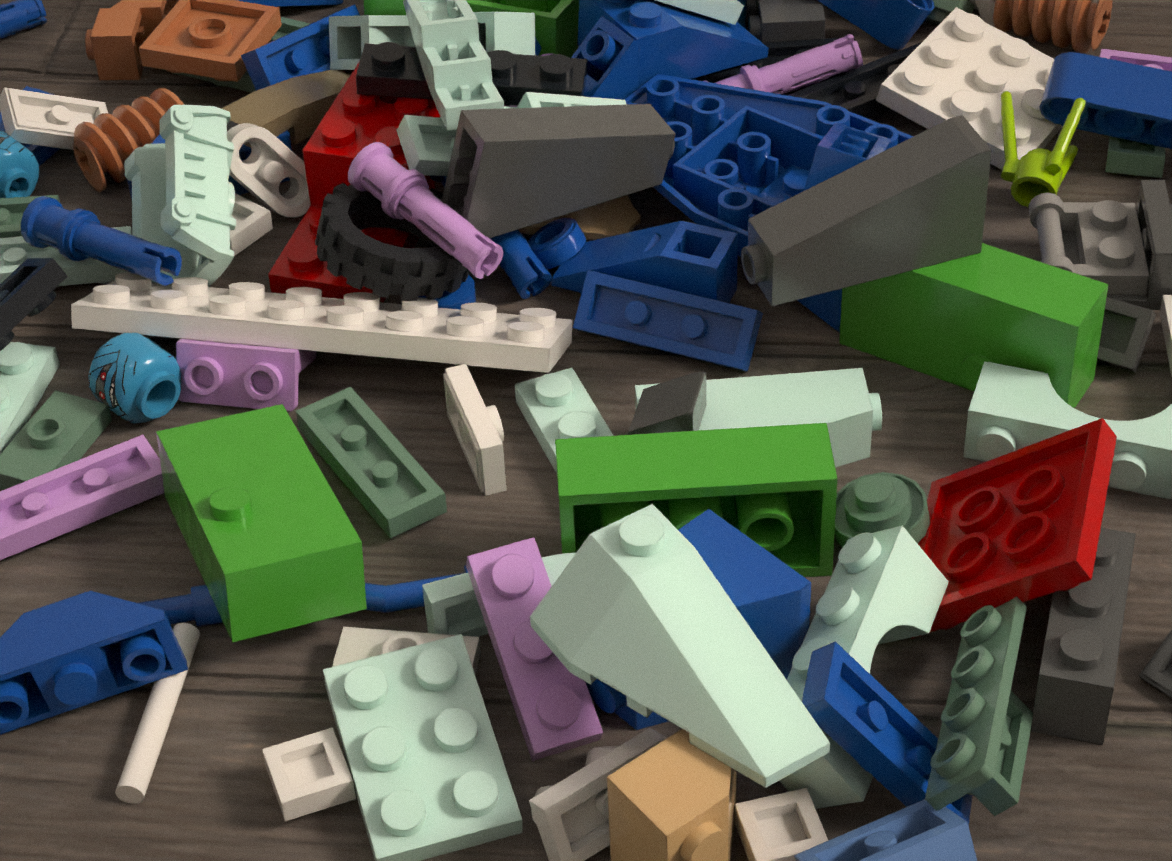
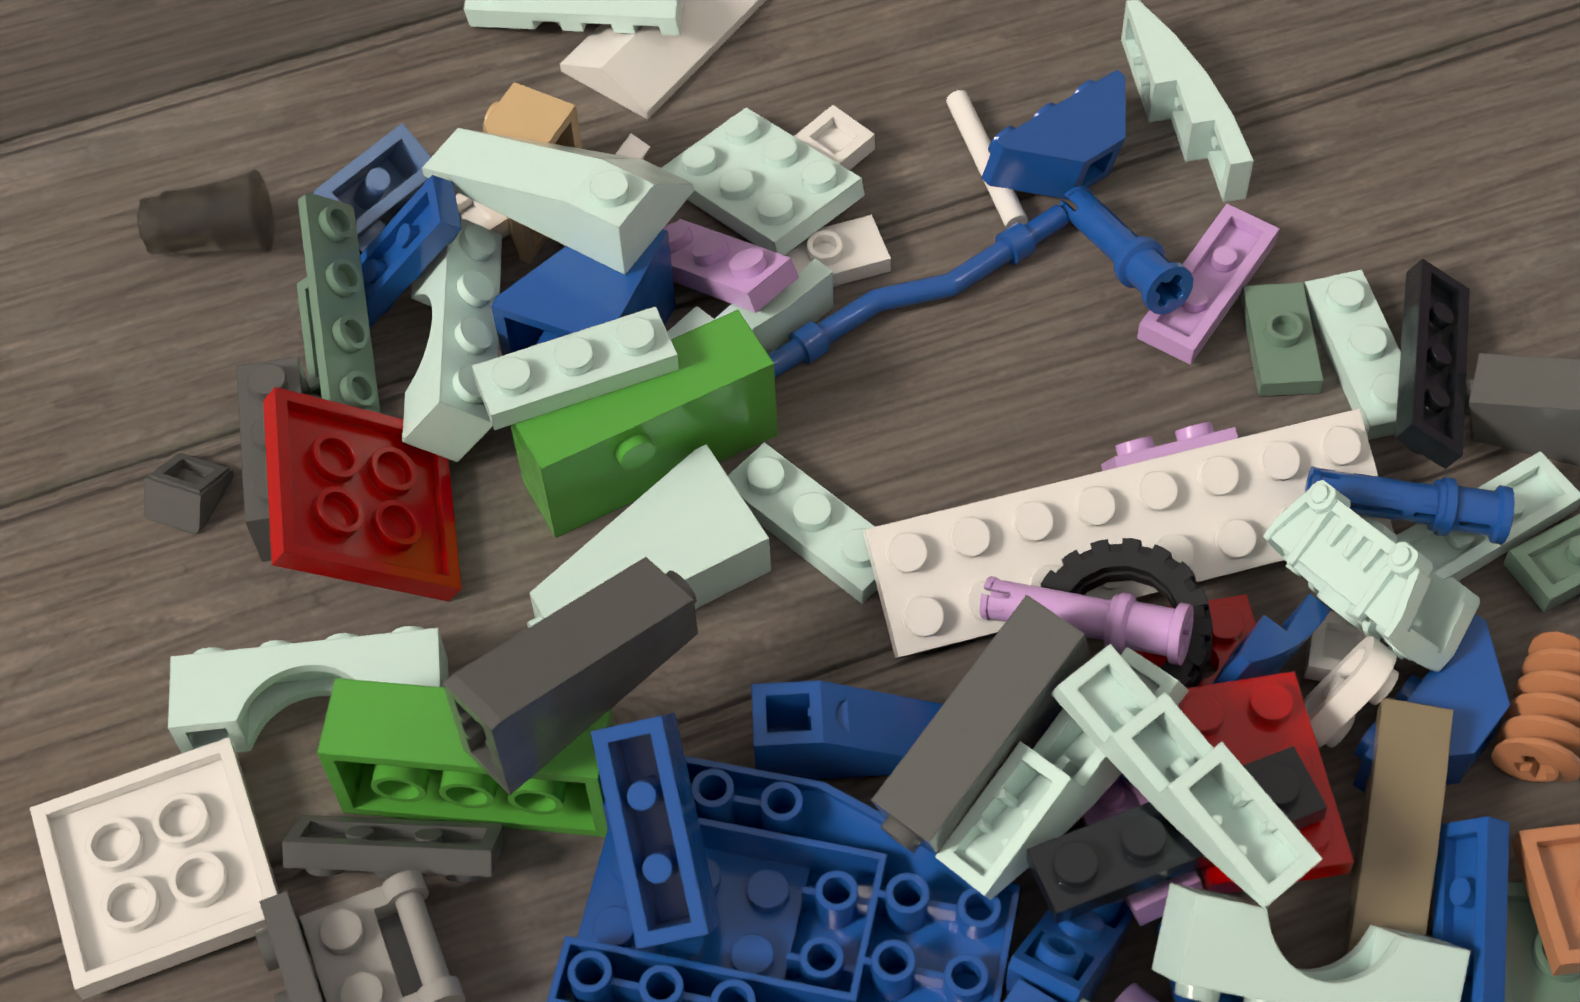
camera: 155 degrees right, 15 degrees up
(123, 503) = (1136, 259): none -> blue pin
(135, 378) = (1254, 400): dark azure head -> none
(261, 522) = (1011, 280): bright green brick -> none
(291, 195) = (1271, 646): none -> blue slope
(371, 462) = (981, 415): sand green plate -> none
(476, 429) = (901, 471): white plate -> none
(668, 320) = (728, 684): blue plate -> none
(671, 406) = (711, 494): dark grey slope -> none
(753, 478) = (575, 367): none -> light aqua plate
(880, 503) = (493, 520): sand green plate -> none

